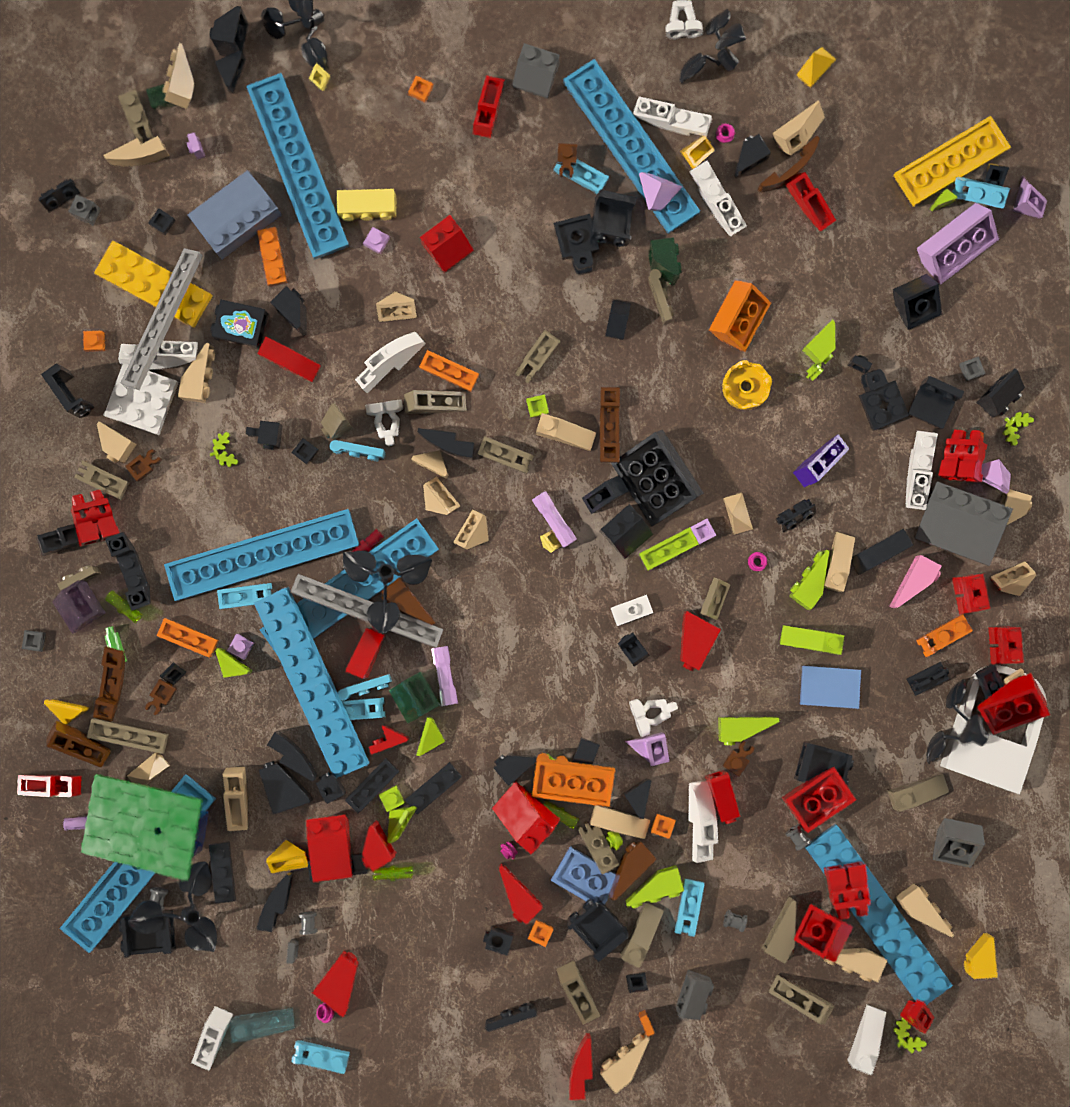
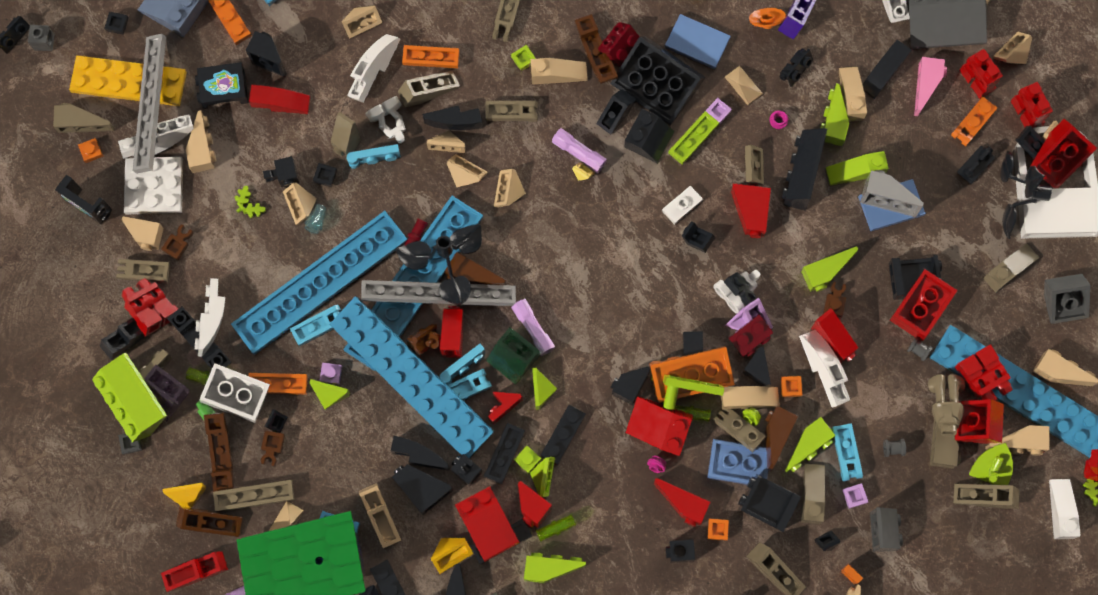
camera: 20 degrees left, 10 degrees down
(43, 601) = (129, 398): none -> lime slope
(84, 302) = (74, 119): none -> dark tan slope
(141, 635) = (234, 393): none -> white slope
(142, 559) = (210, 320): none -> white slope
(271, 468) = (299, 202): none -> tan slope
(280, 492) = (315, 221): none -> clear light blue cone
(340, 650) = (424, 339): none -> reddish brown hips
(370, 909) = (544, 569): none -> lime slope
(553, 787) = (674, 383): none -> lime piece
(635, 427) = (619, 43): none -> dark red bracket
(643, 765) = (750, 336): none -> dark red bracket
(651, 713) = (739, 286): none -> black plate
(679, 951) = (855, 496): none -> lavender plate
(711, 453) = (697, 41): none -> medium blue tile
(762, 621) = (804, 168): none -> black slope
(788, 456) = (767, 17): none -> orange dish
(797, 916) = (947, 414): none -> dark tan piece
(820, 975) = (994, 465): none -> lime shield
(830, 679) = (888, 194): none -> light grey slope

